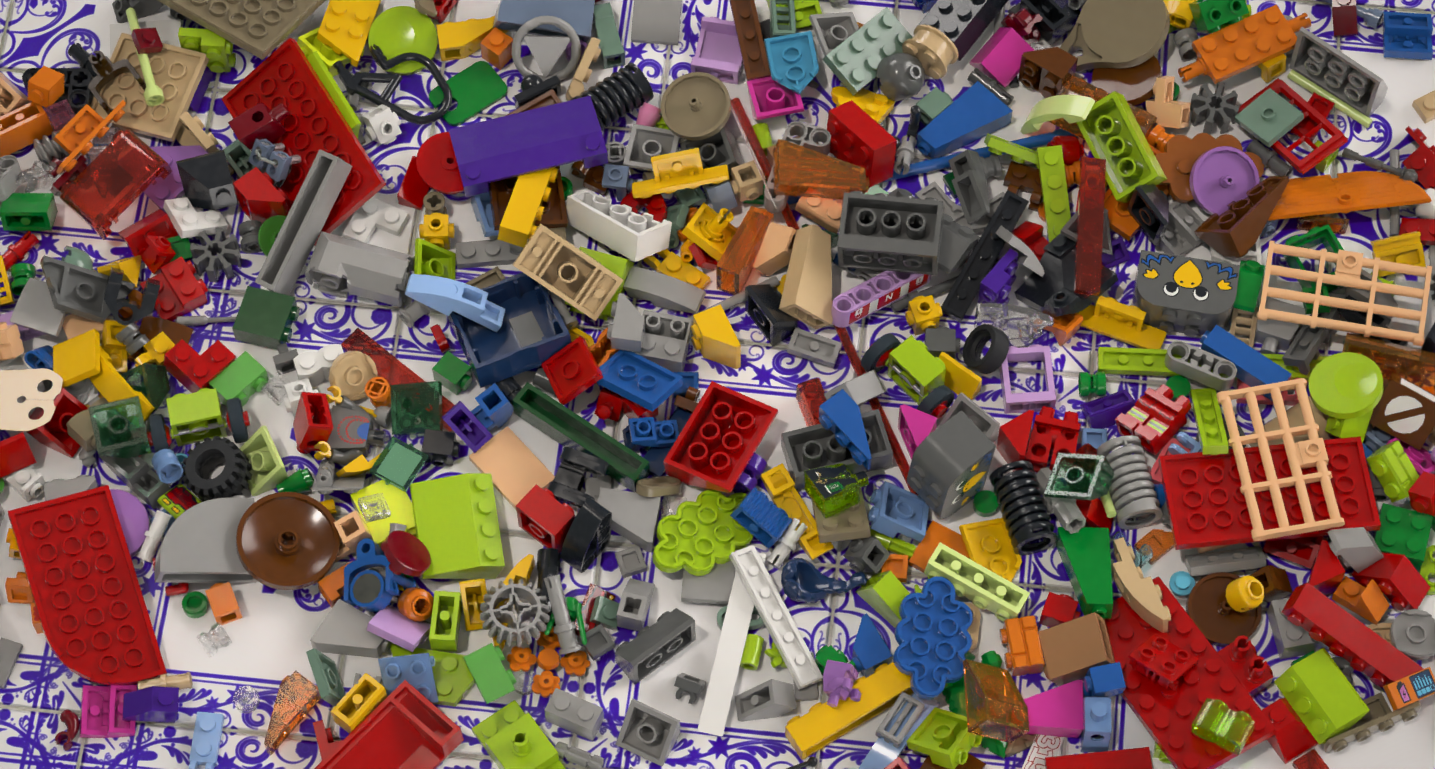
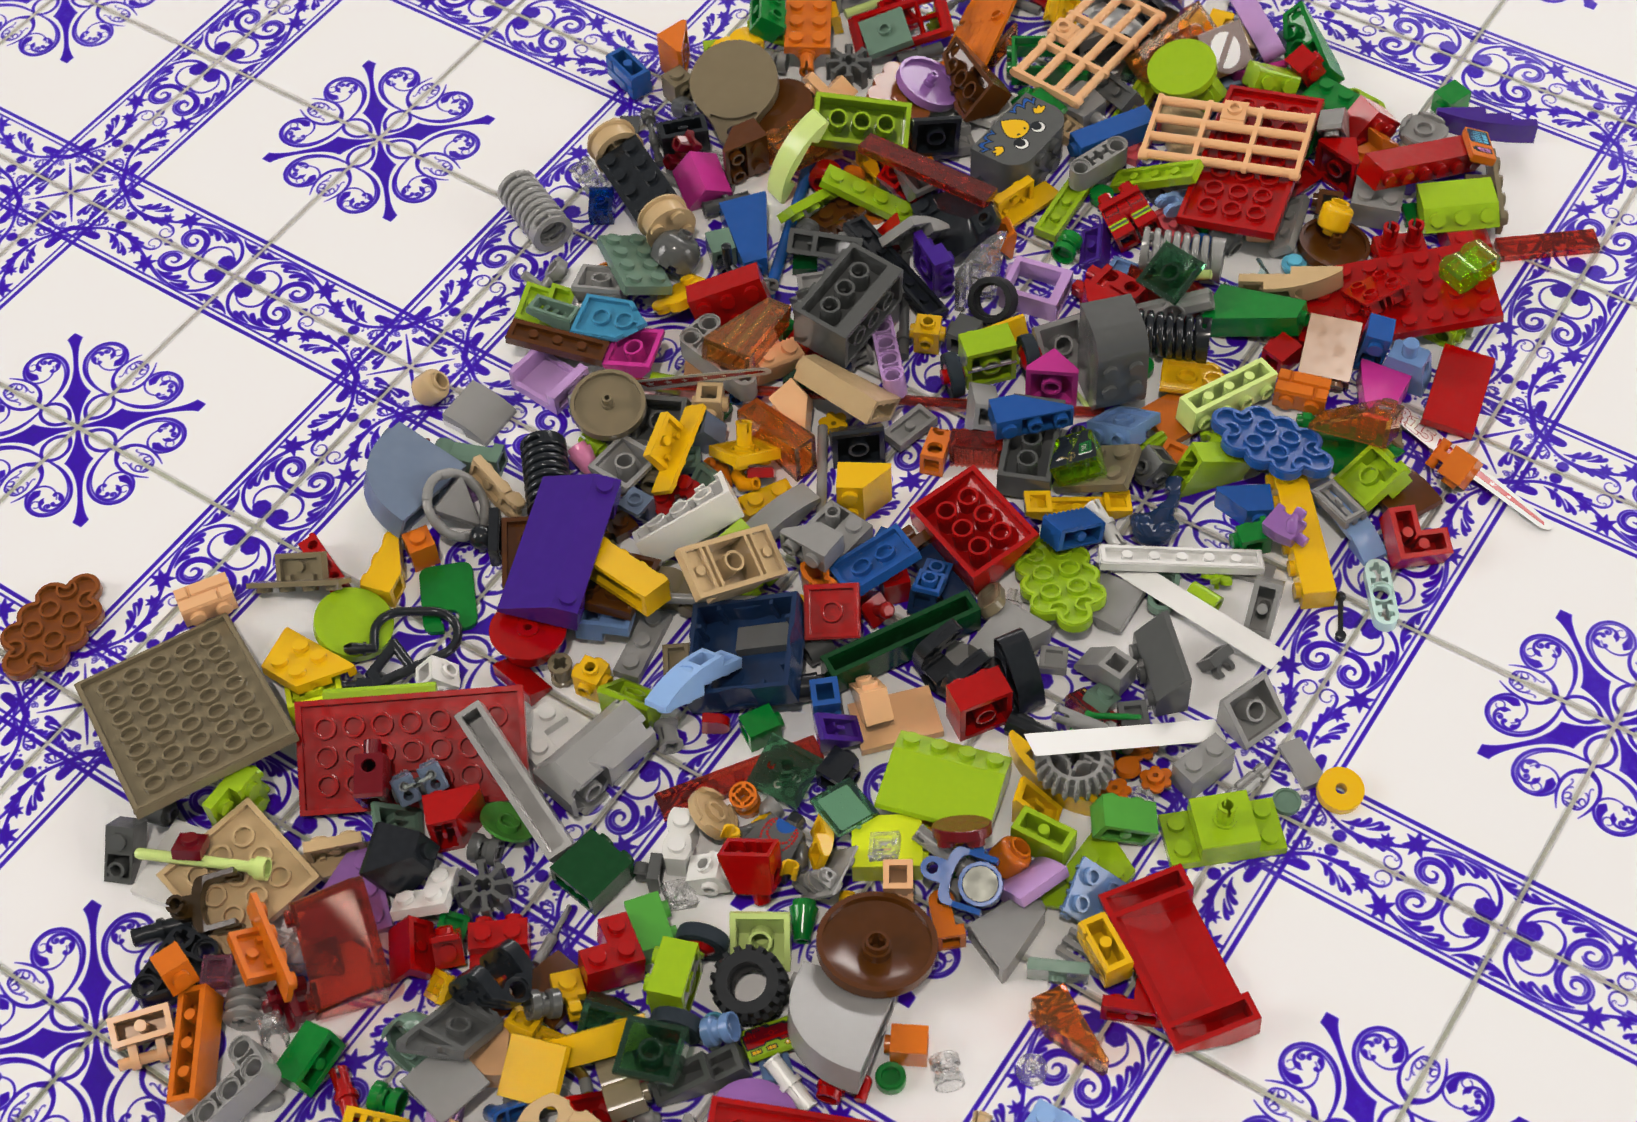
camera: 60 degrees left, 10 degrees down
(511, 439) = (871, 700): none -> light nougat slope
(558, 640) = (1122, 737): none -> white sticker
(790, 376) = (935, 452): none -> orange leg
(1159, 541) = (1244, 262): clear orange tile -> none

